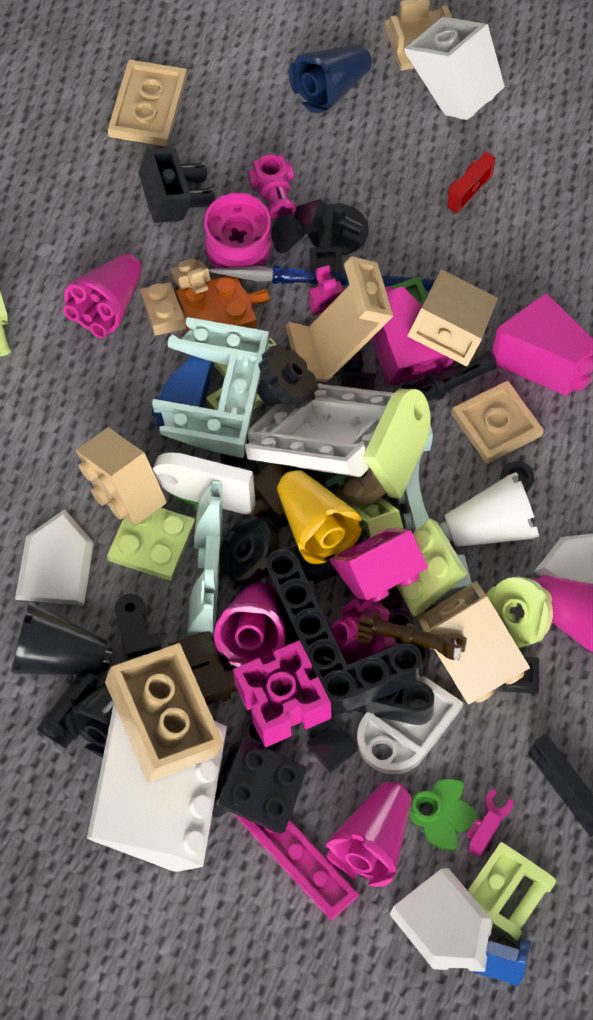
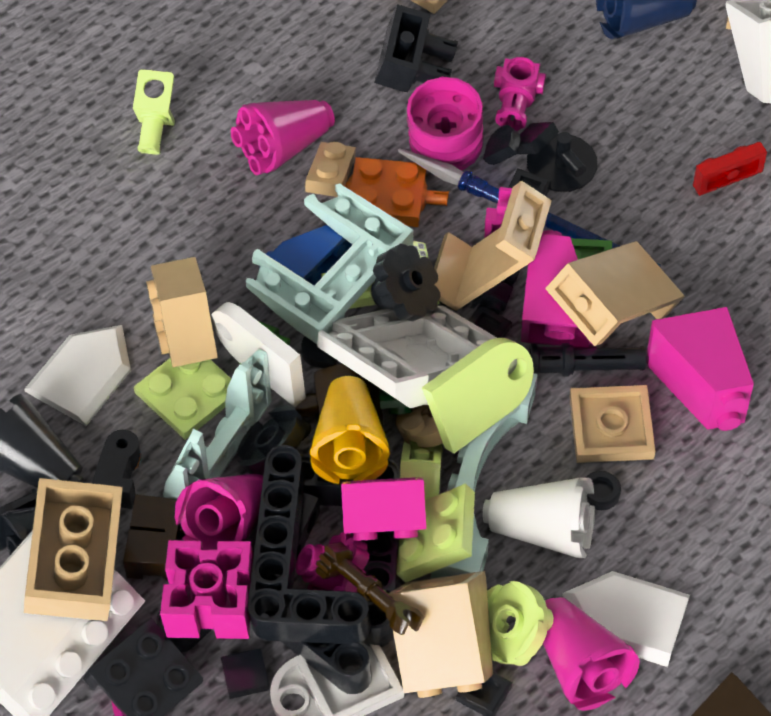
camera: 30 degrees right, 5 degrees down
(191, 274) = (379, 147): tan plate -> none

